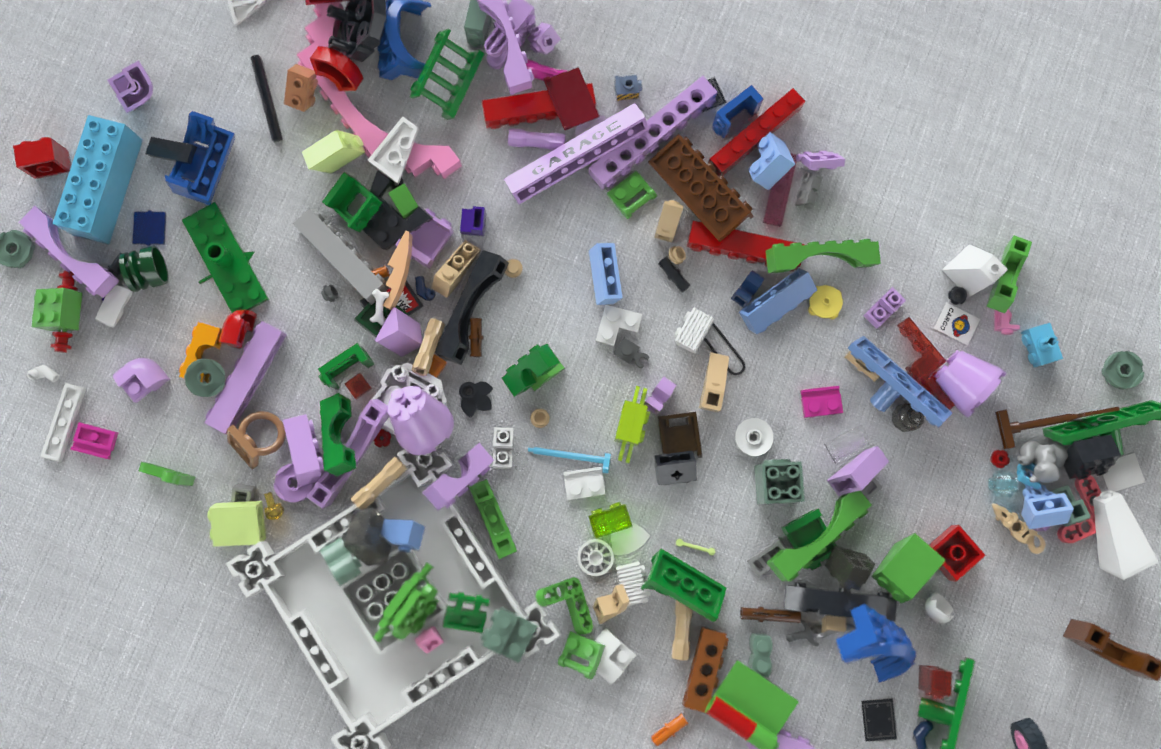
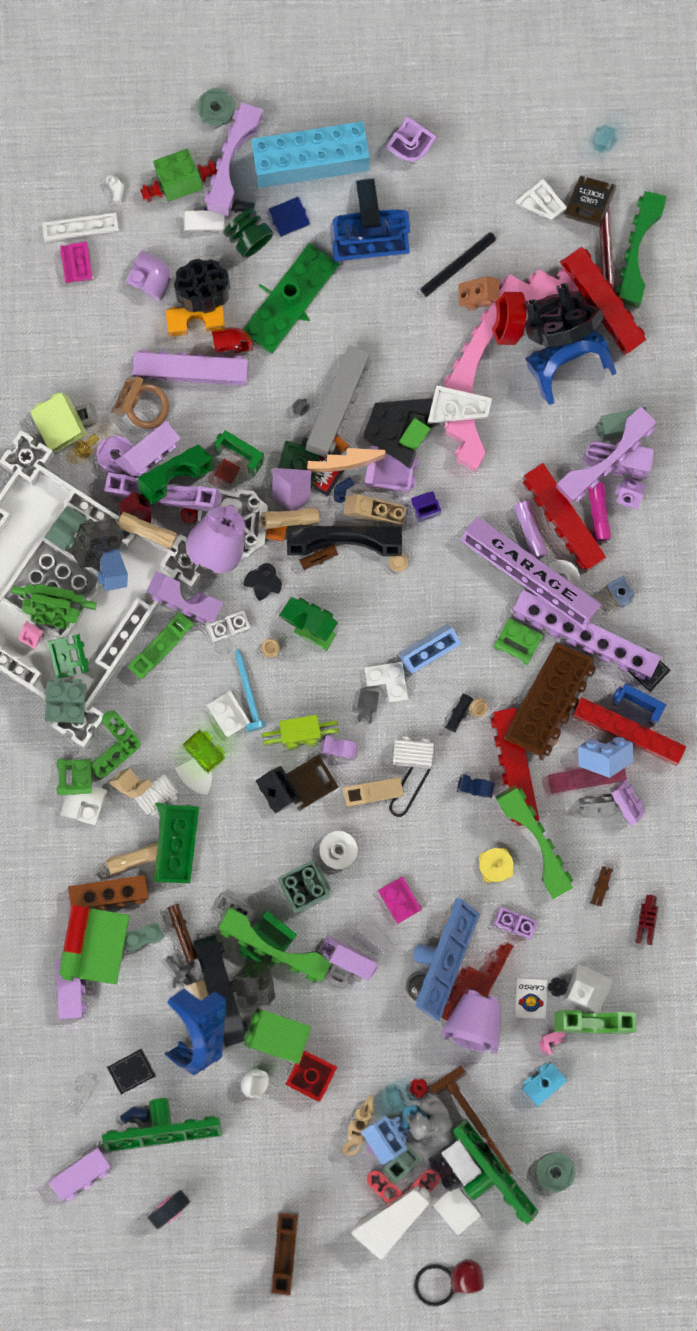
camera: 65 degrees right, 0 degrees up
(42, 158) = (309, 94): red brick -> none
(167, 475) = (74, 343): bright green beam -> none
(172, 332) = (202, 285): none -> black connector
(204, 389) = (179, 343): sand green plate -> none
(333, 151) = (430, 351): yellowish green brick -> none
(342, 196) = (396, 377): green window -> none
(351, 483) = (136, 505): none -> dark red slope
(380, 297) = (313, 455): white piece -> none
(465, 75) = (557, 437): green fence -> none
(571, 98) = (581, 544): dark red piece -> none
(595, 557) = (166, 753): white wheel -> none
(668, 220) = (503, 684): tan slope -> none
(669, 730) = (42, 884): orange axle -> none
(711, 551) = (212, 824): yellowish green hinge -> none
(778, 301) = (475, 819): medium blue brick -> none
(883, 218) = (601, 886): none -> reddish brown pin
(929, 191) = (647, 919): none -> dark red hinge
(935, 681) = (186, 1102): clear red brick -> none

